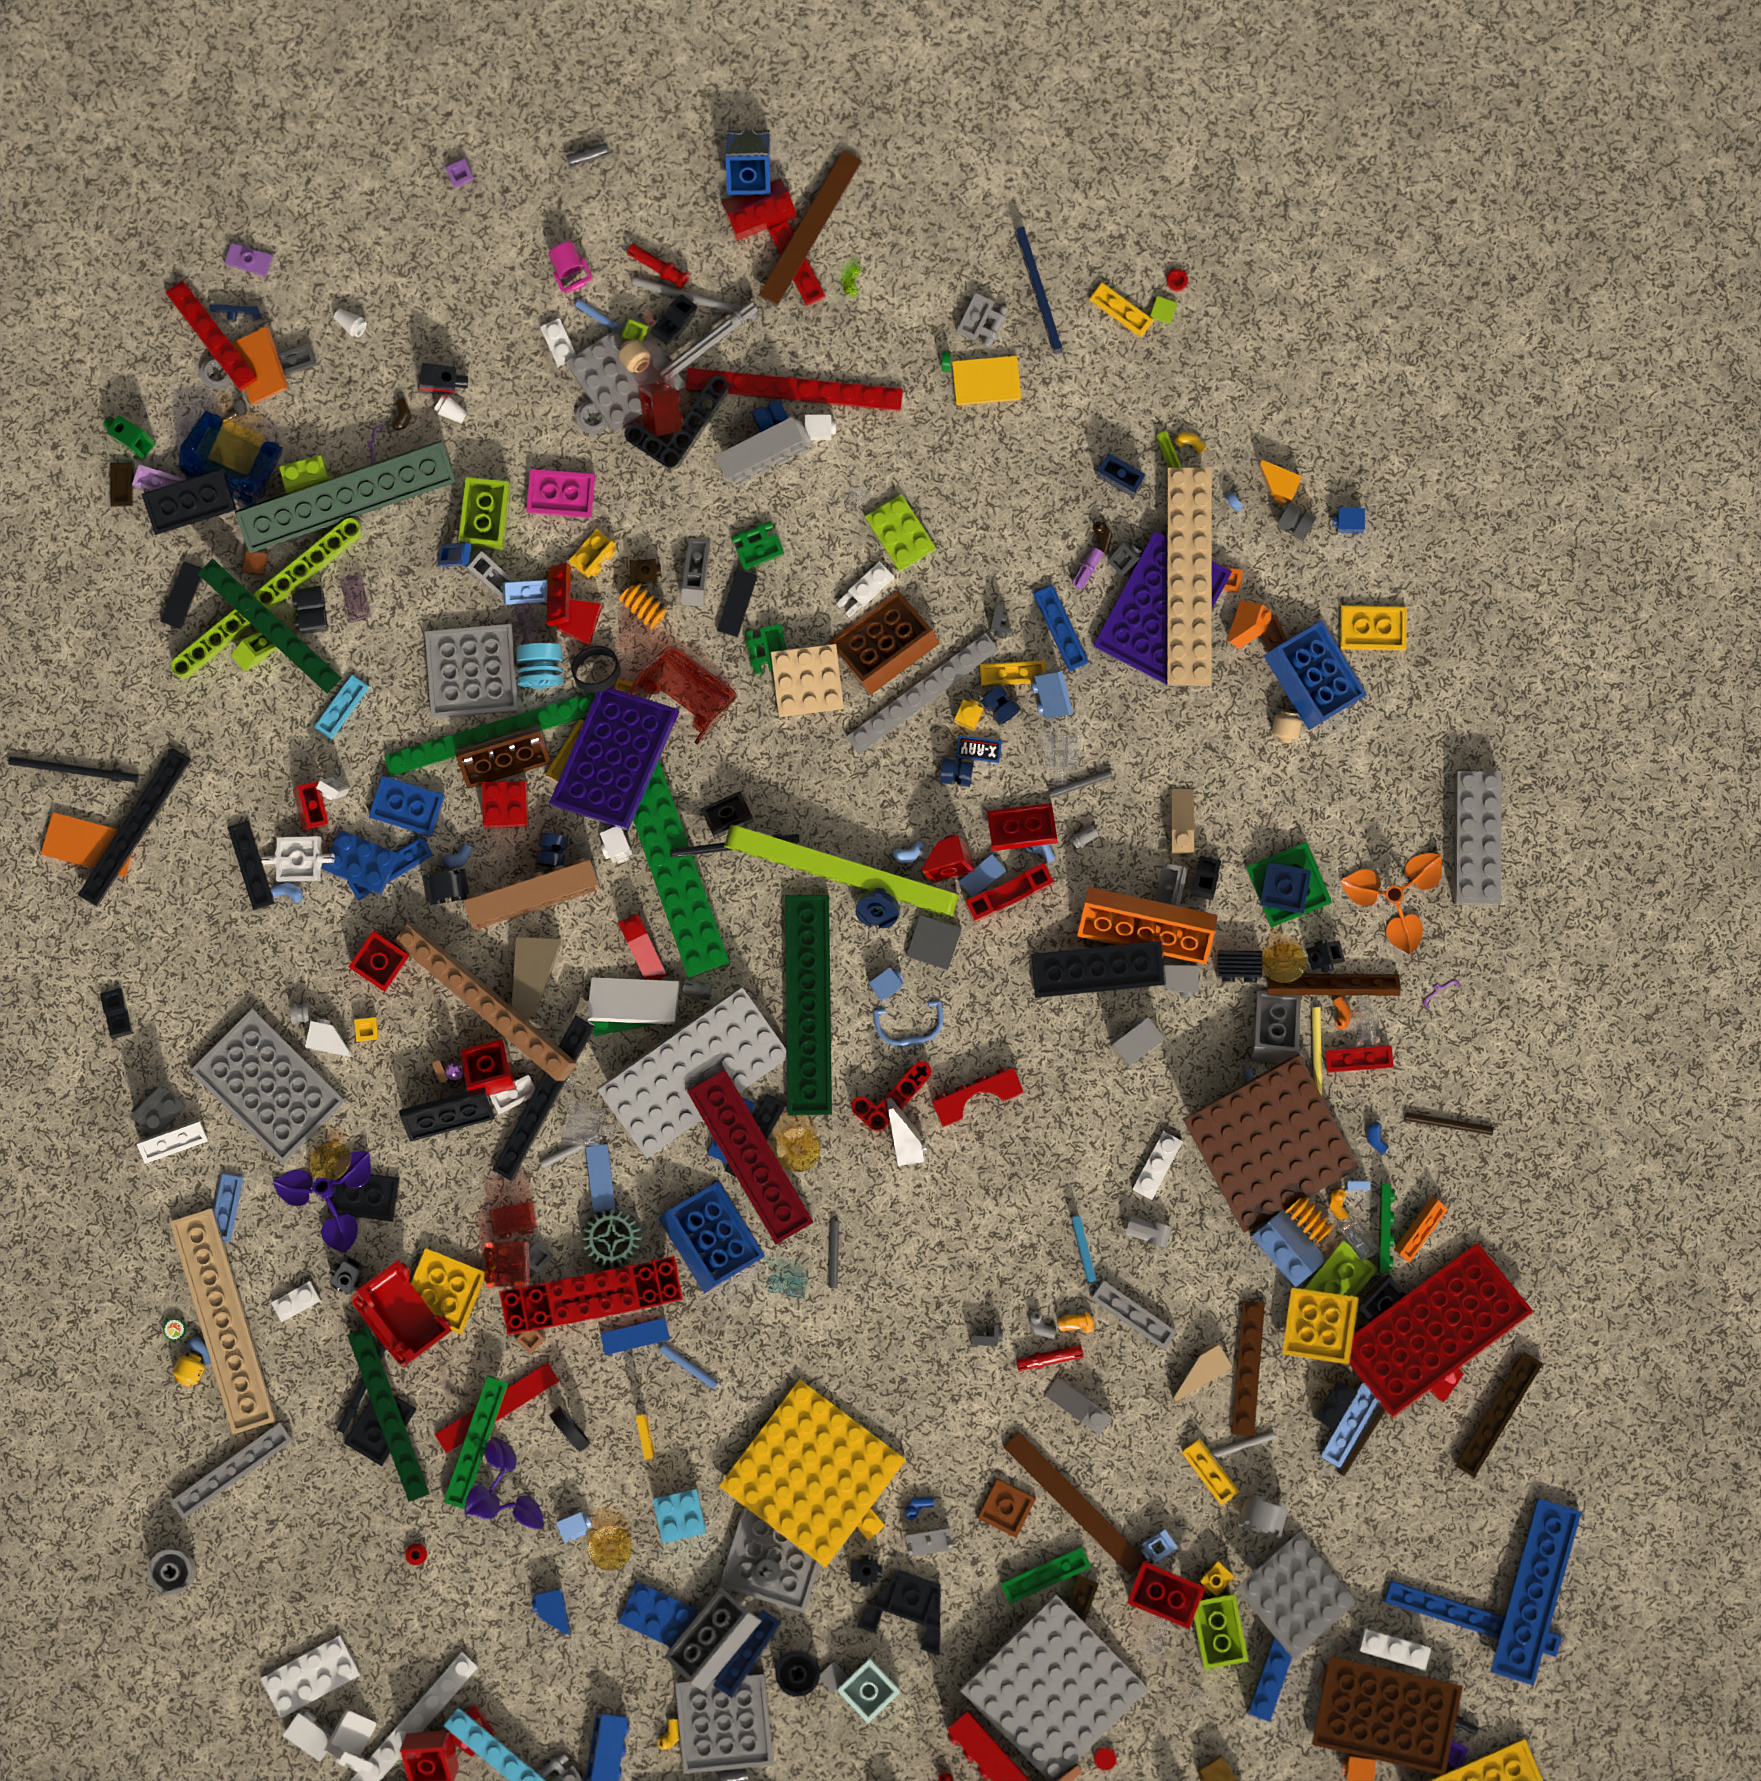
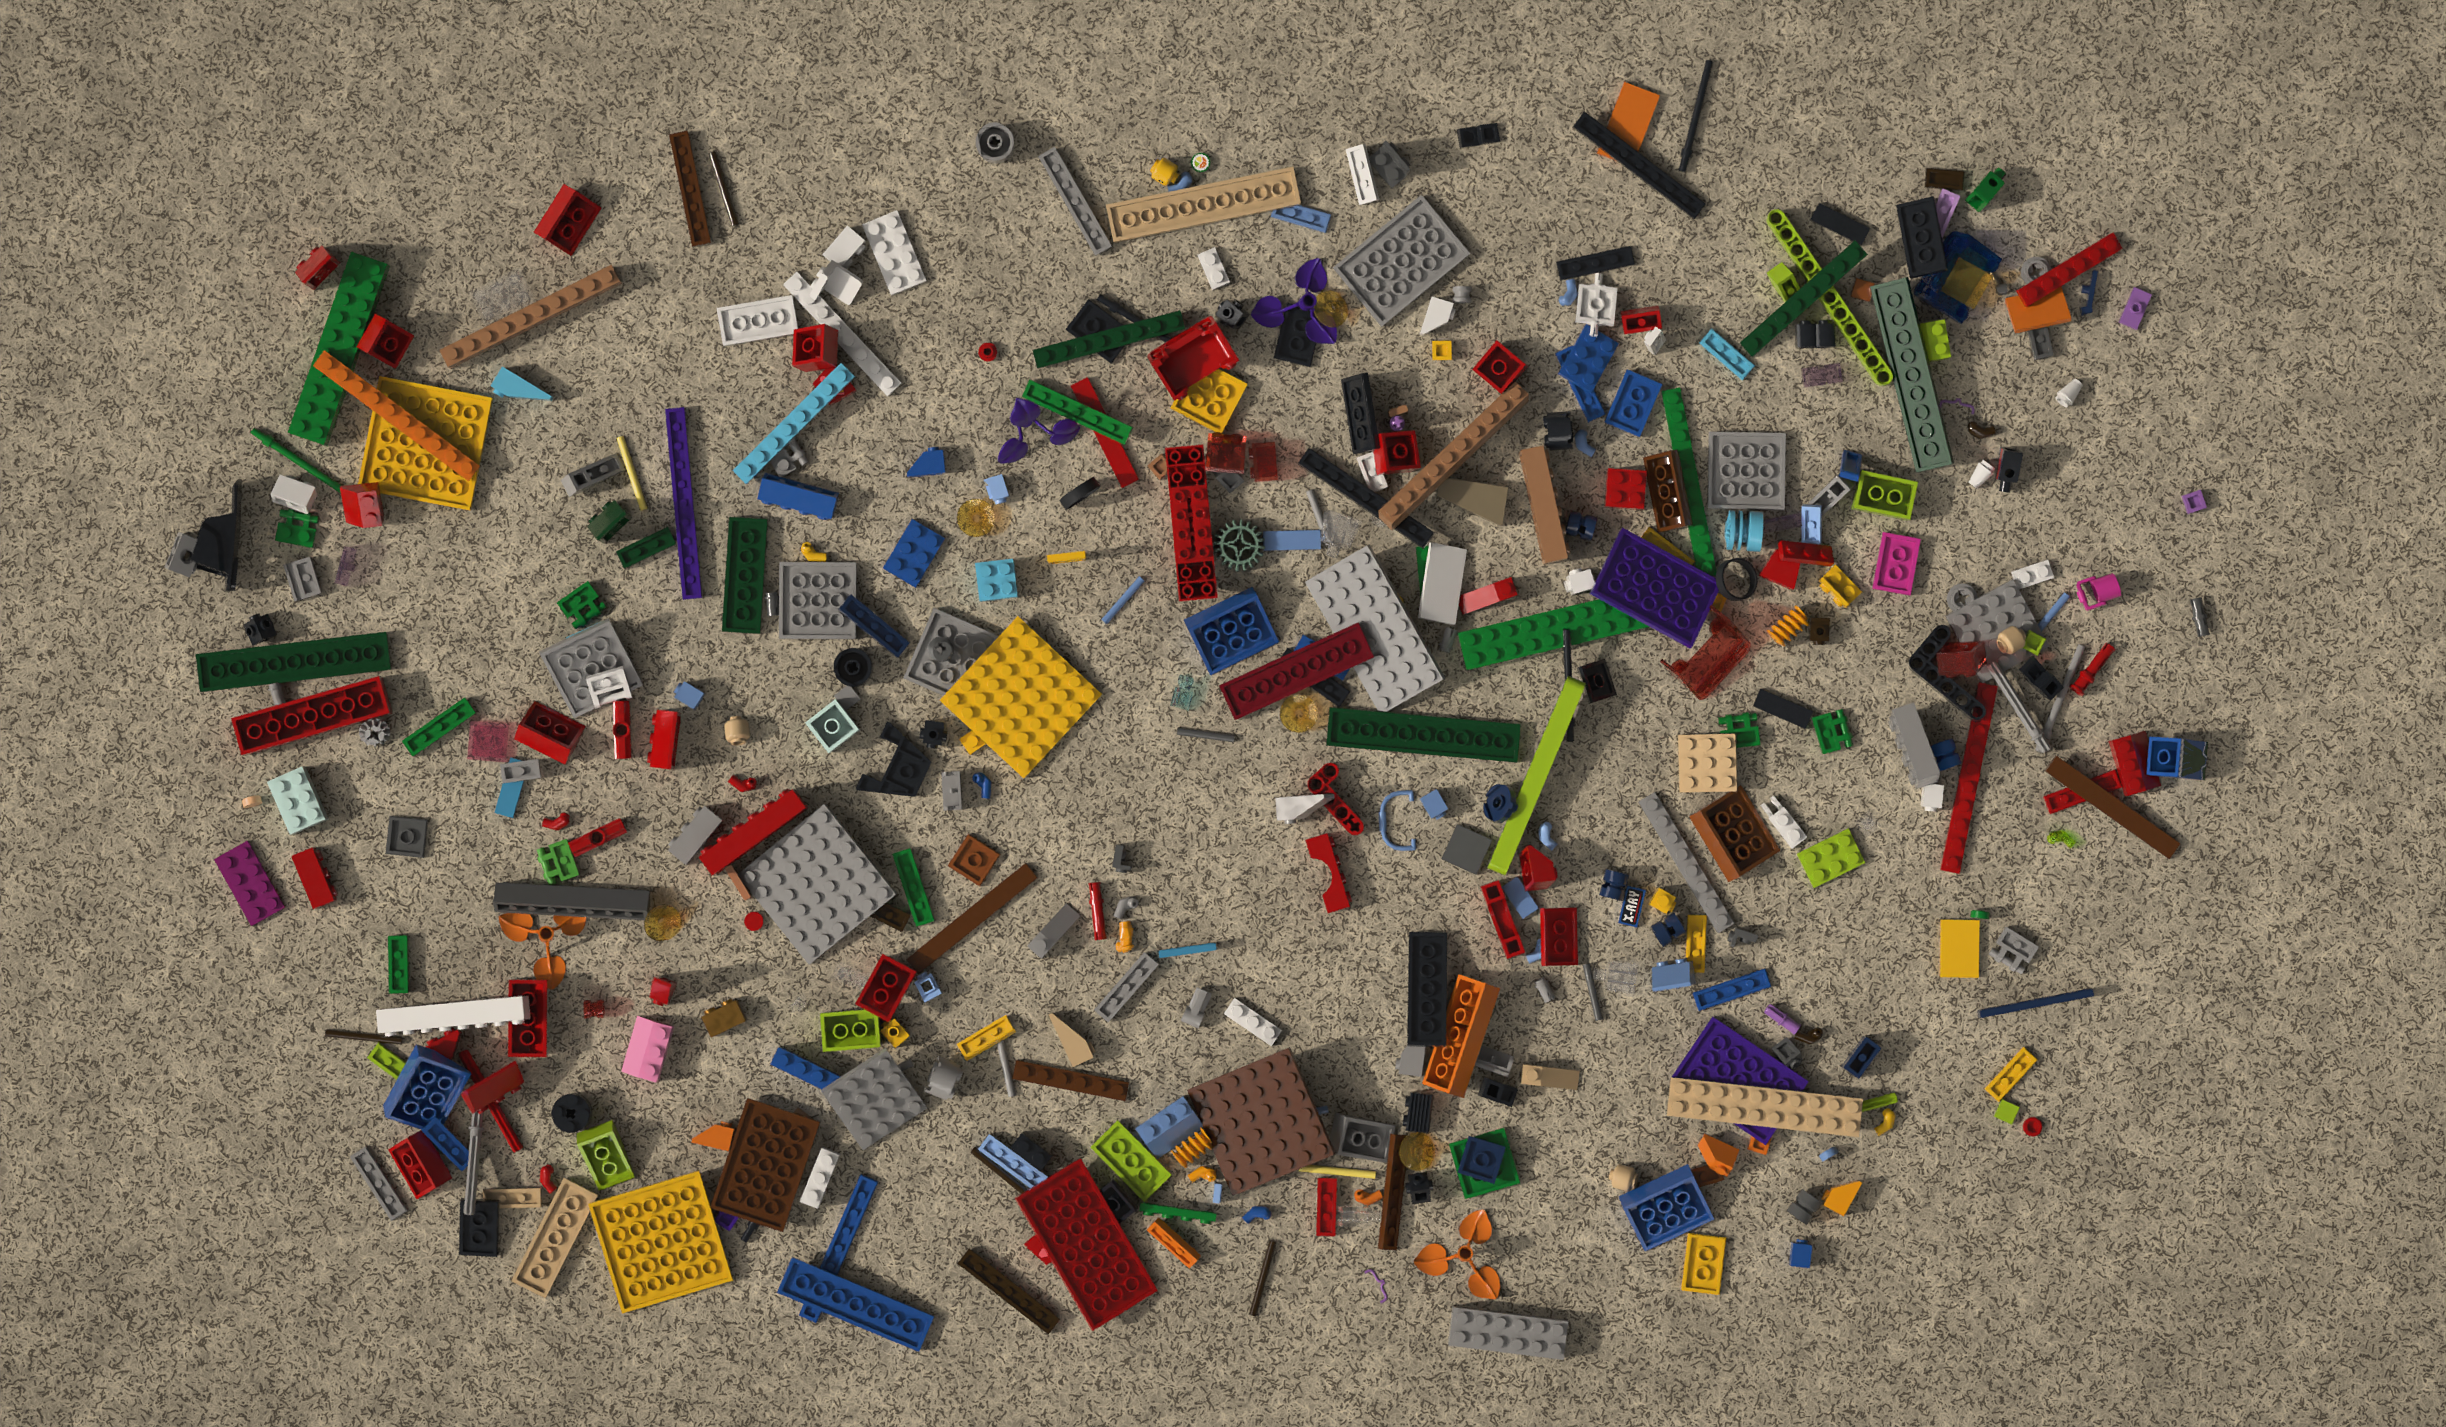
camera: 90 degrees right, 5 degrees up
(635, 1336) = (1153, 556): blue tile -> none
(695, 572) = (1813, 675): light grey slope -> none
(712, 1639) = (889, 597): light grey brick -> none
(1137, 1042) = (1360, 1016): light grey brick -> none
(1320, 1326) = (1100, 1145): yellow plate -> none
(1358, 1237) = (1172, 1187): clear plate -> none

